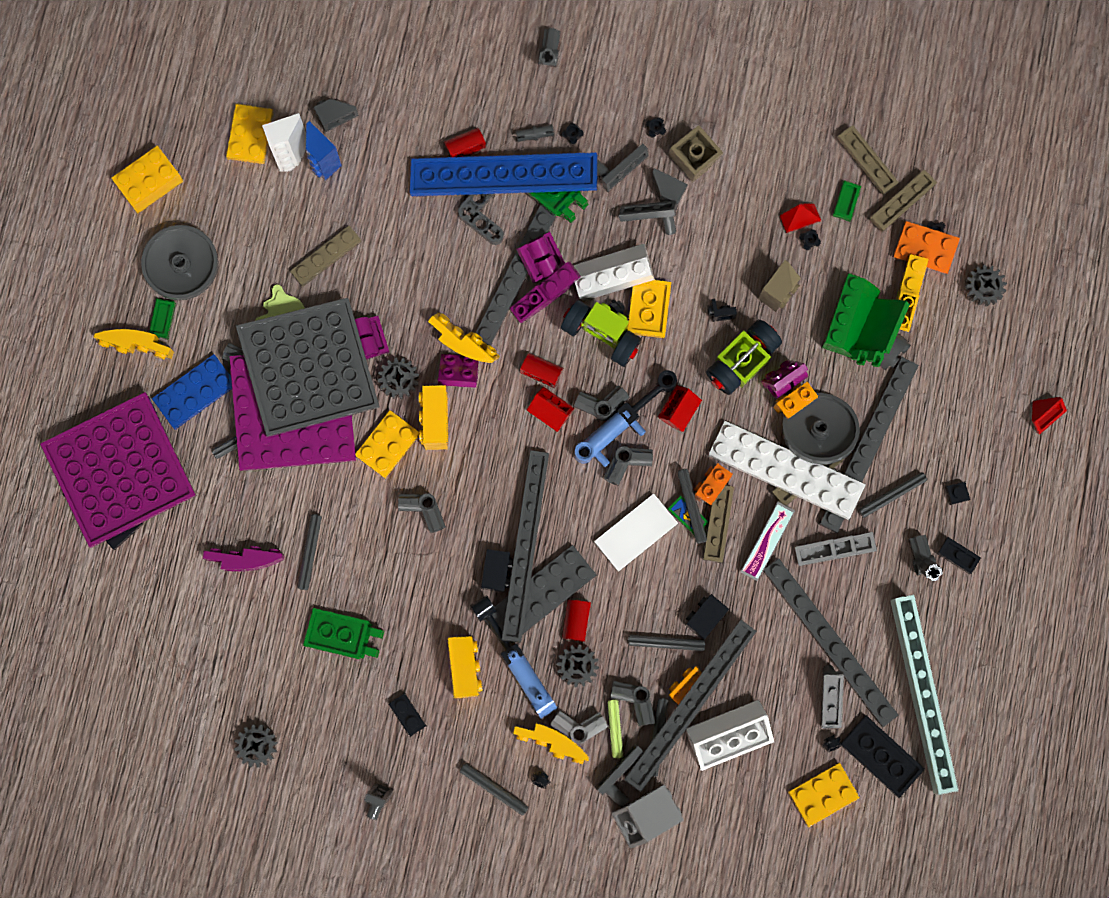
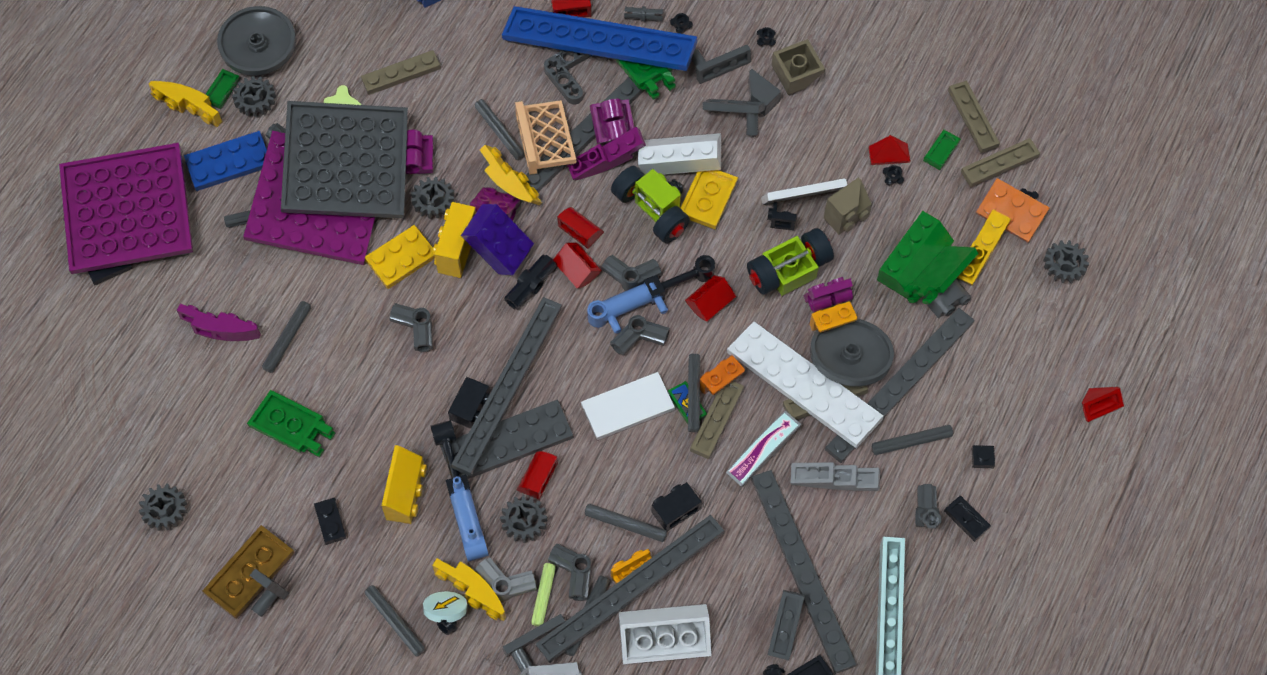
camera: 20 degrees right, 15 degrees down
(190, 325) = (254, 96): none -> dark grey gear
(351, 782) = (233, 586): none -> pearl gold plate
(437, 291) = (499, 129): none -> dark grey axle
(467, 294) = (529, 142): none -> light nougat fence
(474, 409) = (497, 239): none -> dark purple brick
(513, 438) = (530, 282): none -> black piece
(535, 766) = (445, 606): none -> light aqua tile
(736, 282) = (804, 191): none -> white tile

